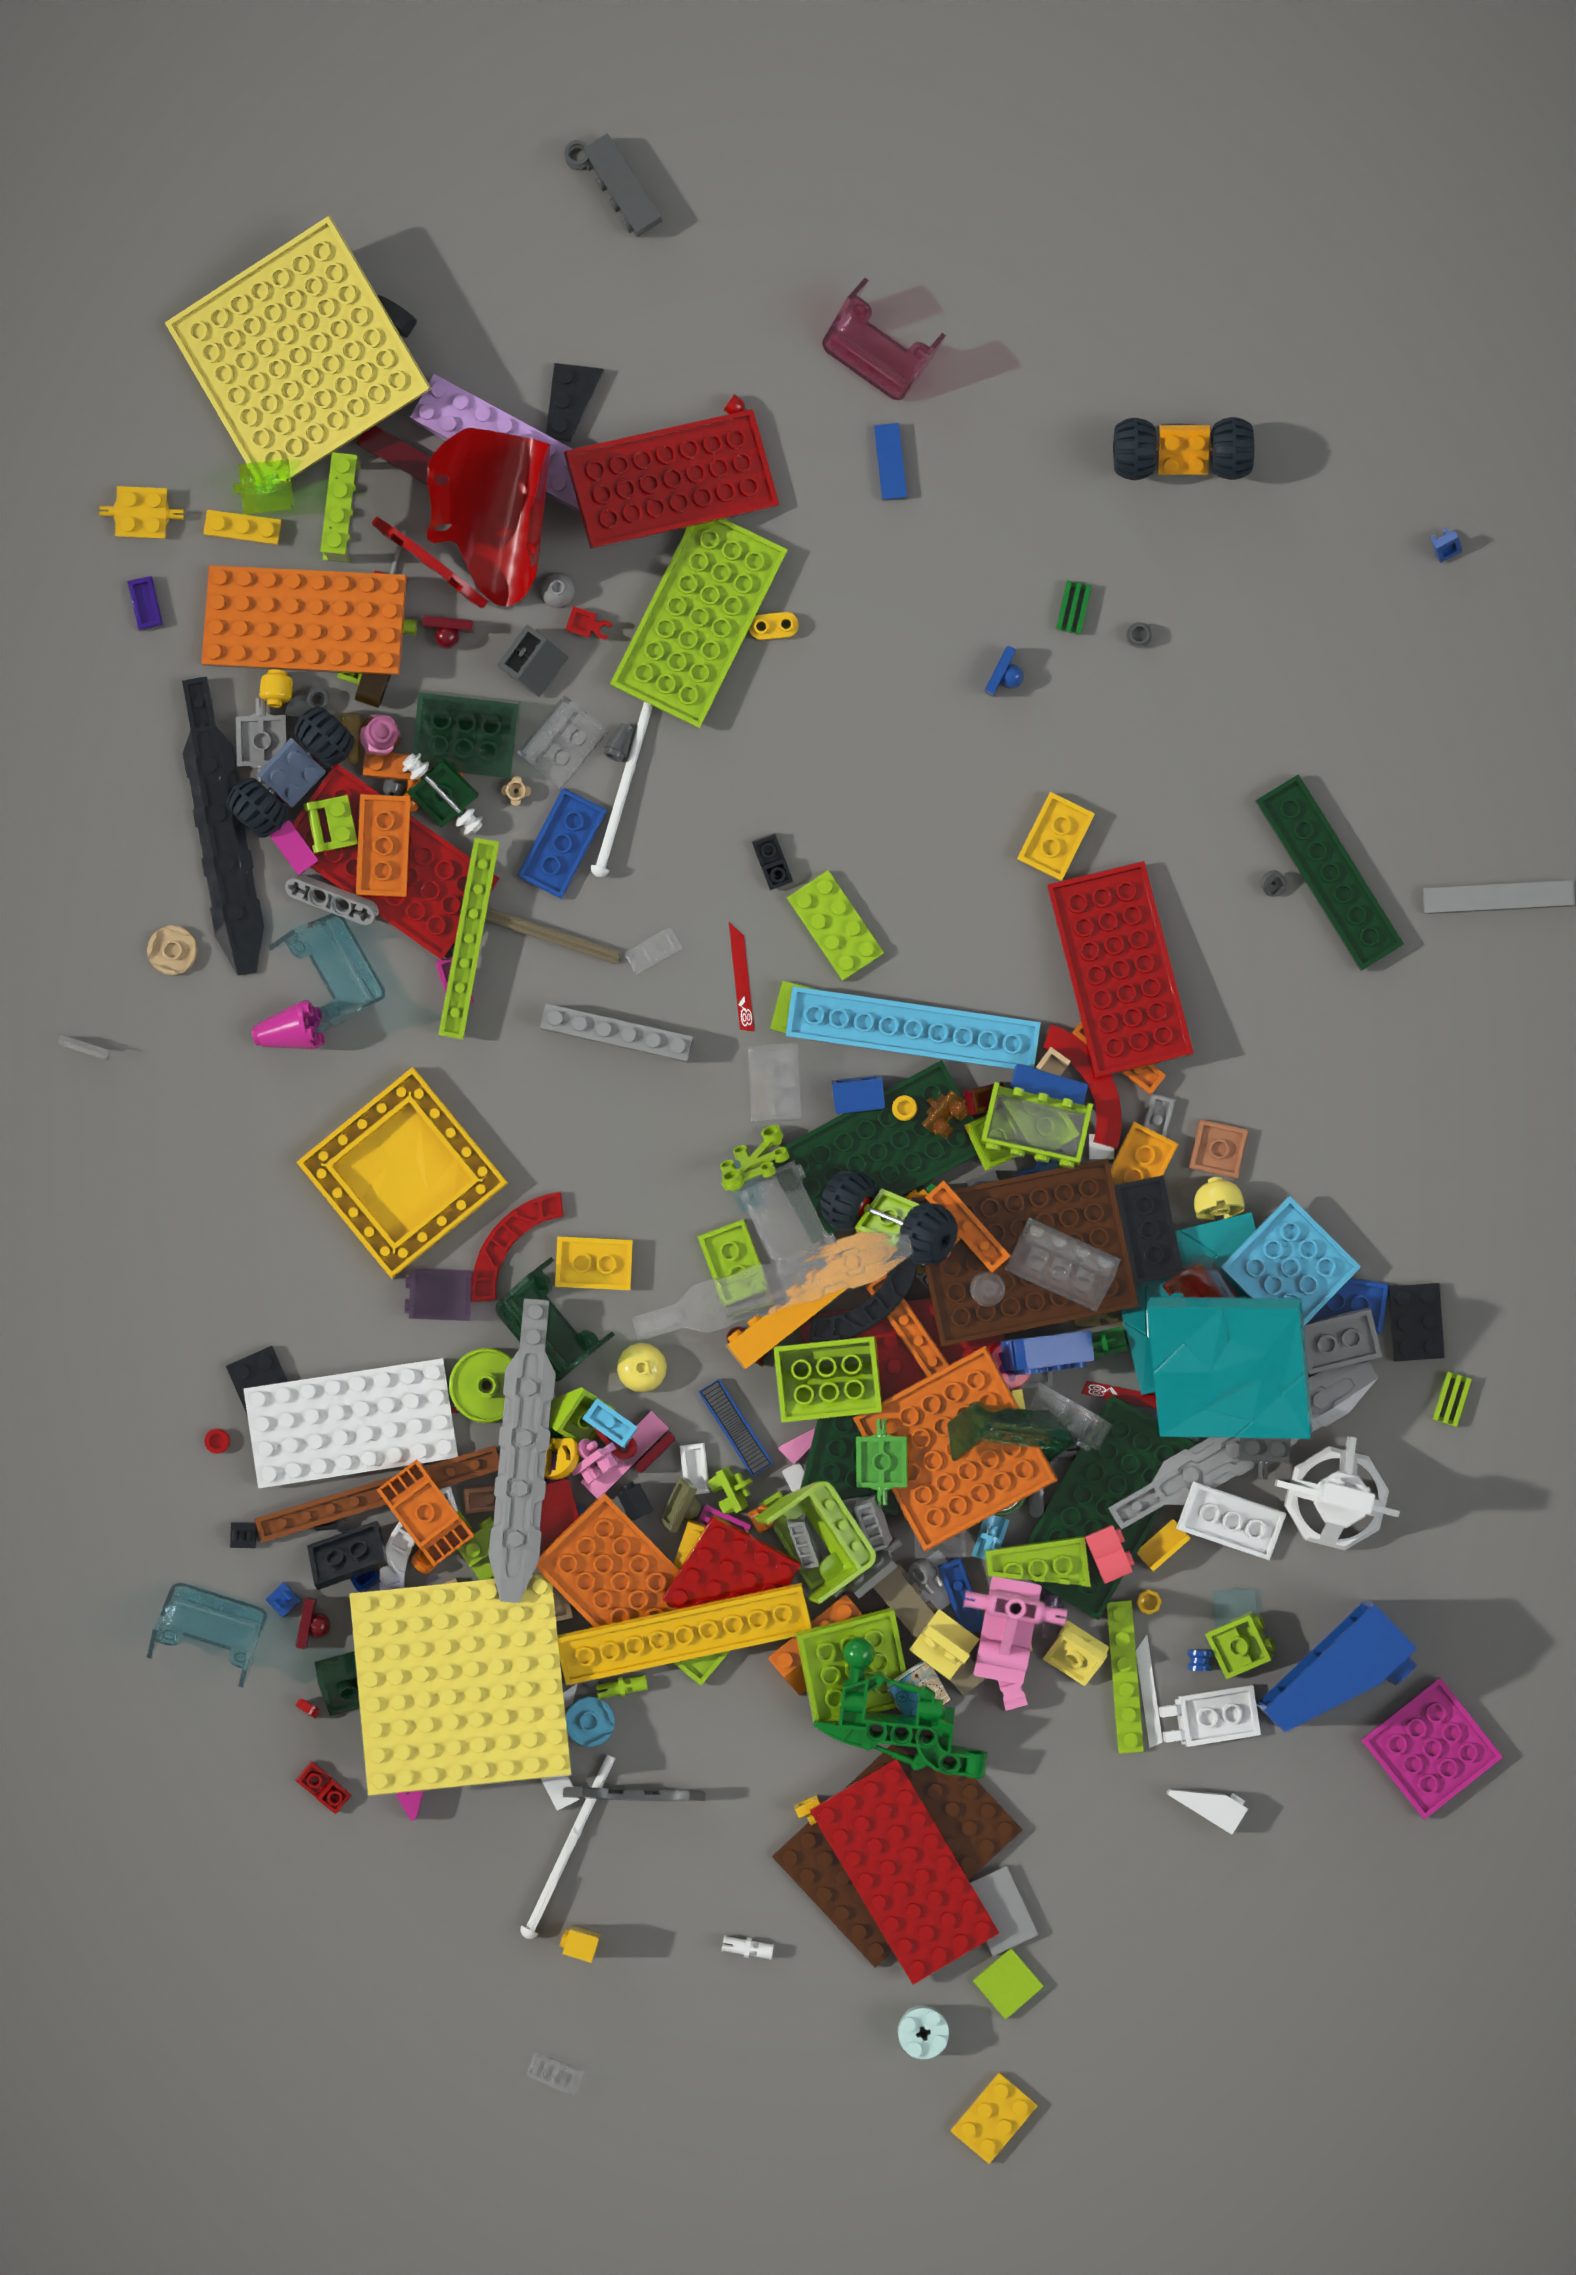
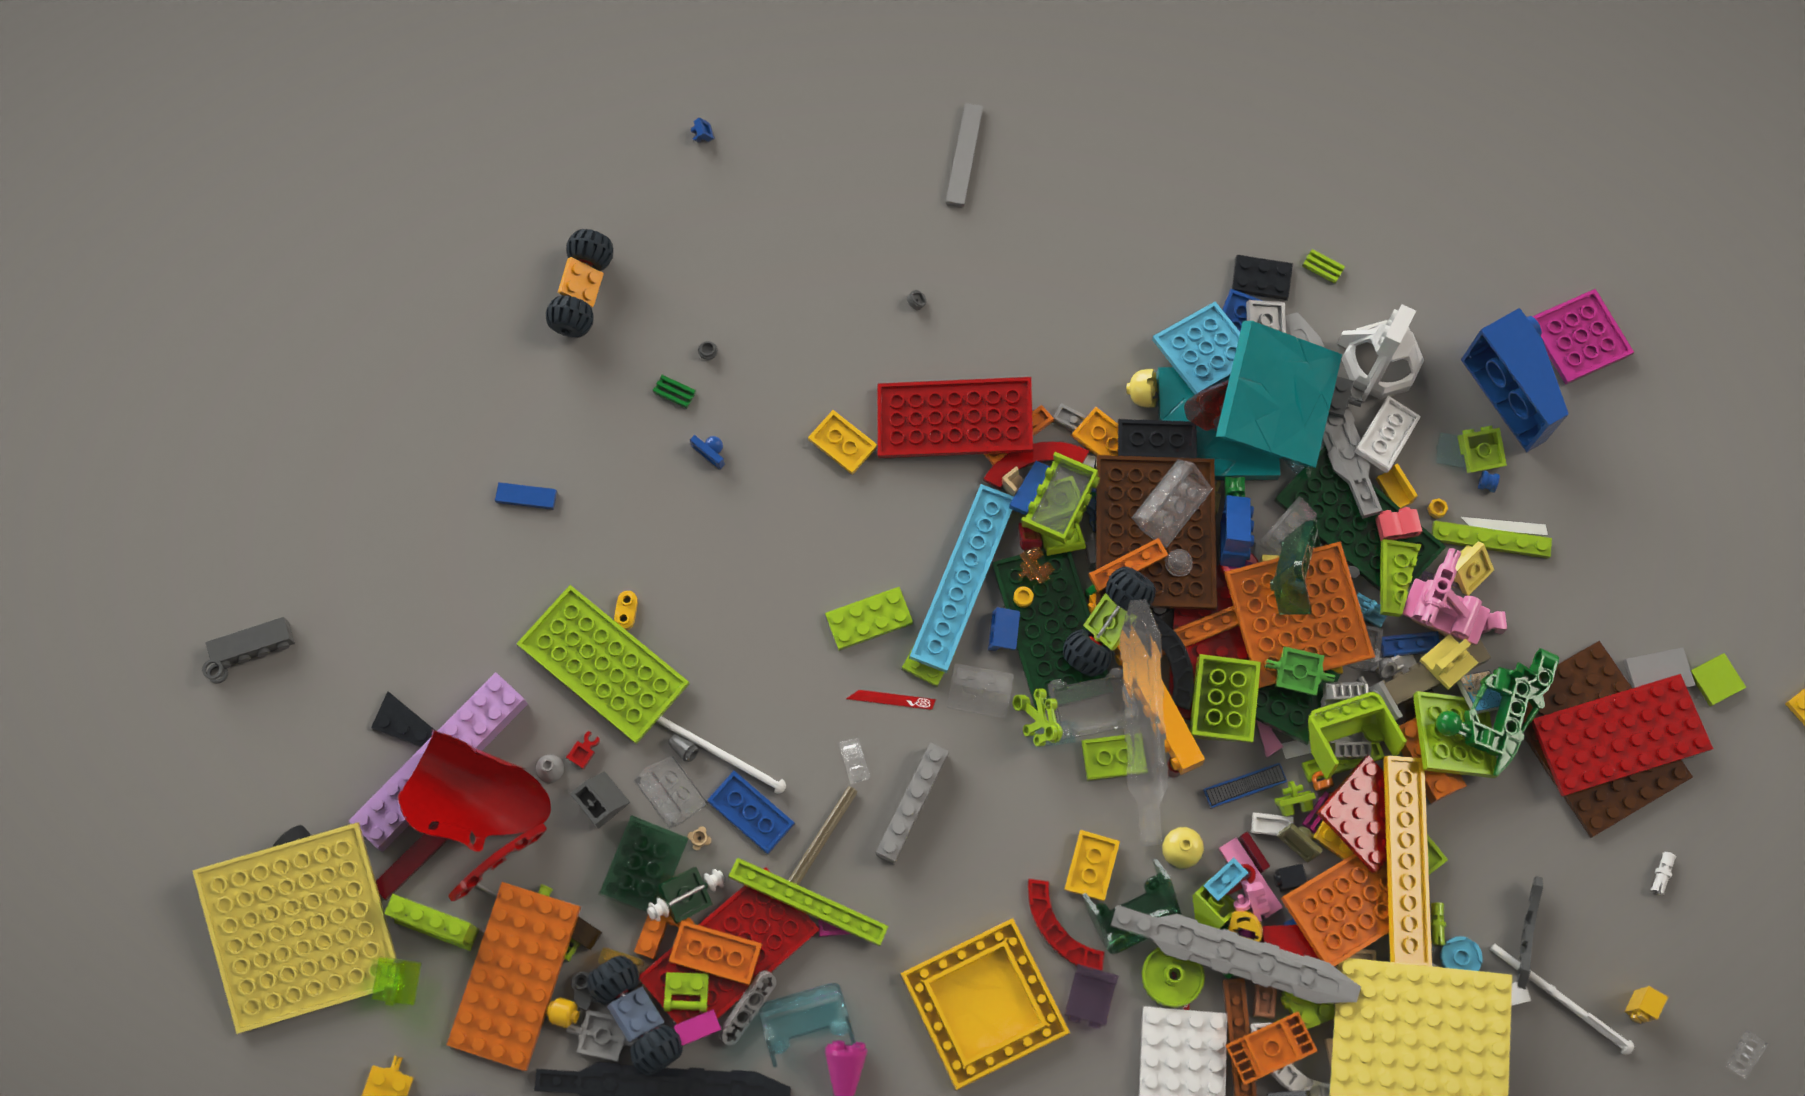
camera: 80 degrees left, 15 degrees down
(242, 527) = (424, 1010): yellow plate -> none
(379, 735) = (625, 936): bright pink hair -> none
(393, 787) = (670, 936): dark grey hinge -> none
(421, 1562) = (1308, 1063): orange tile -> none
(447, 629) = (555, 861): dark red tile -> none
(671, 479) = (488, 656): red plate -> none
(735, 405) = (448, 598): red hinge -> none
(772, 861) = (807, 653): black slope -> none
(803, 1808) = (1557, 801): yellow tile -> none
(872, 352) = (442, 487): clear pink windscreen -> none
(910, 2025) = (1760, 753): light aqua brick -> none
(1125, 1395) = (1276, 489): red sticker -> none
(1213, 1716) = (1532, 483): white tile -> none
(1215, 1807) = (1601, 496): white slope -> none
(1218, 1149) = (1104, 383): nougat tile -> none
(1329, 872) = (918, 260): dark green plate -> none

